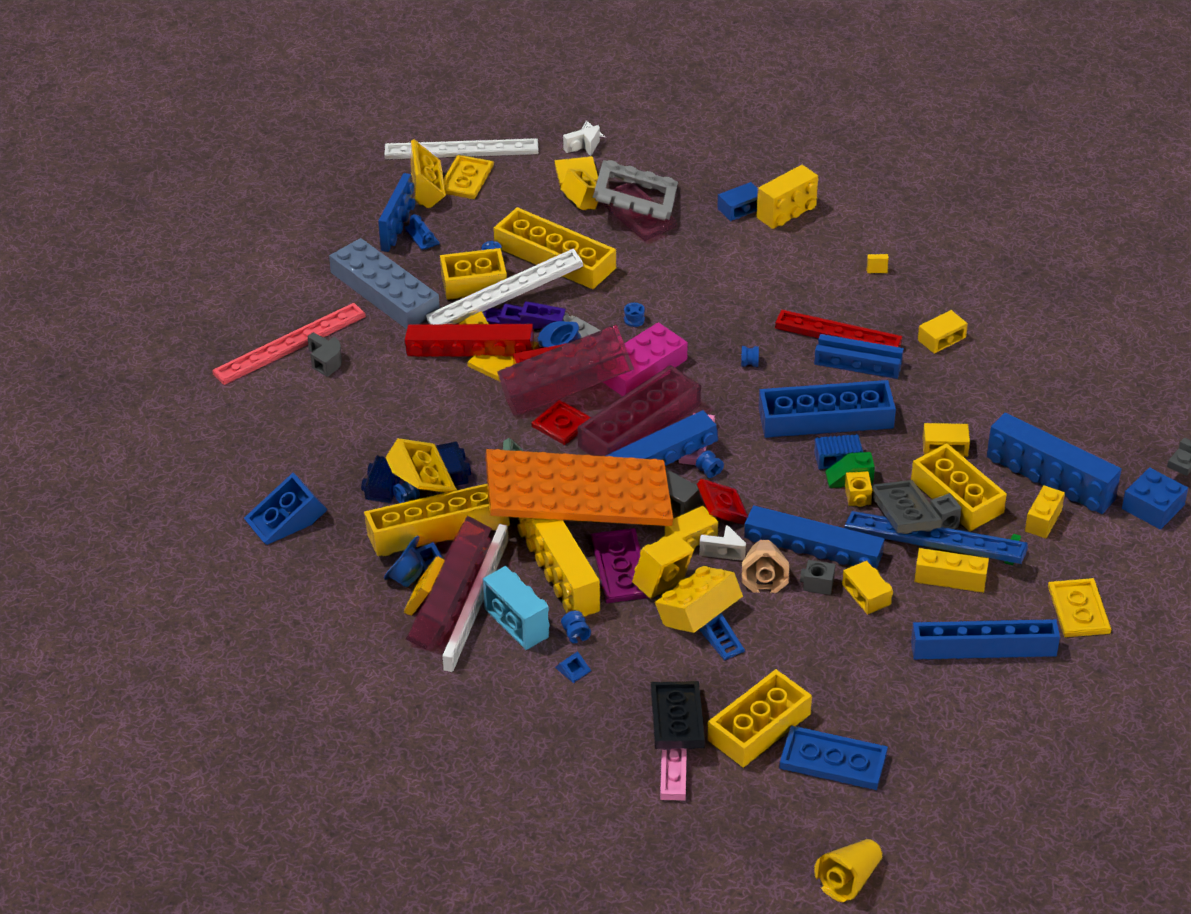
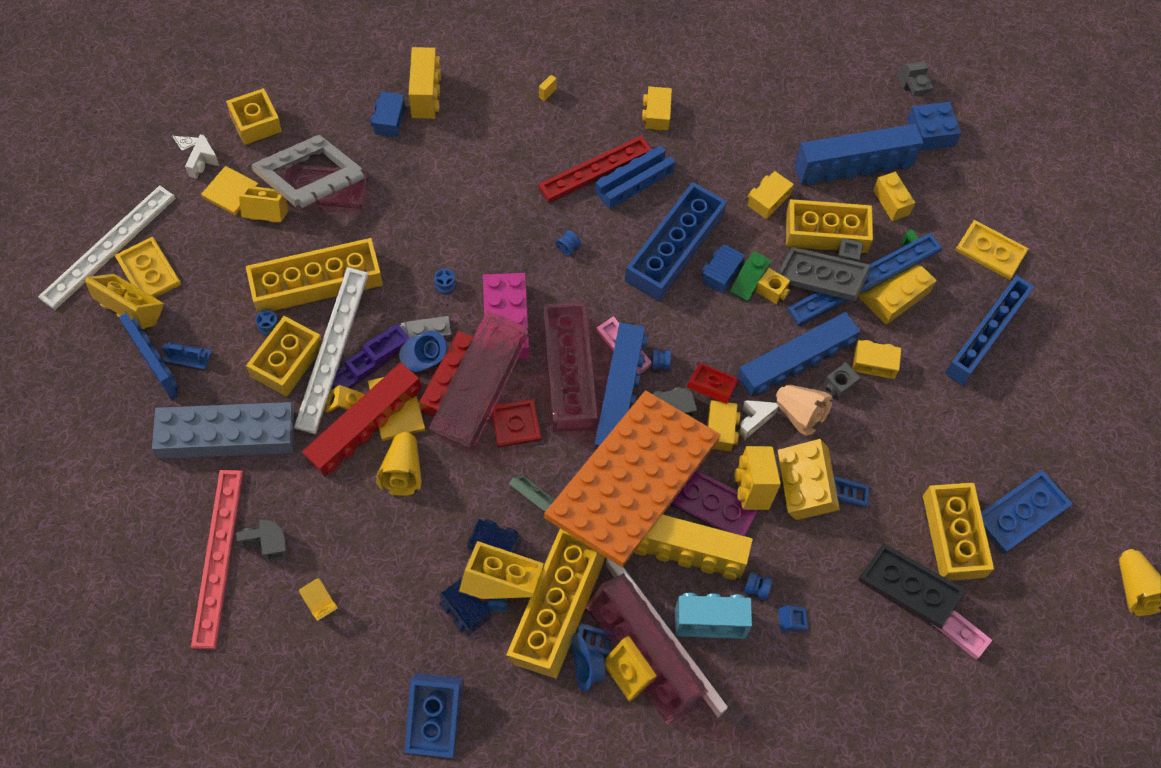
camera: 55 degrees left, 20 degrees up
(310, 404) = (317, 599): none -> yellow bracket
(454, 379) = (401, 466): none -> yellow cone
(647, 140) = (254, 116): none -> yellow brick

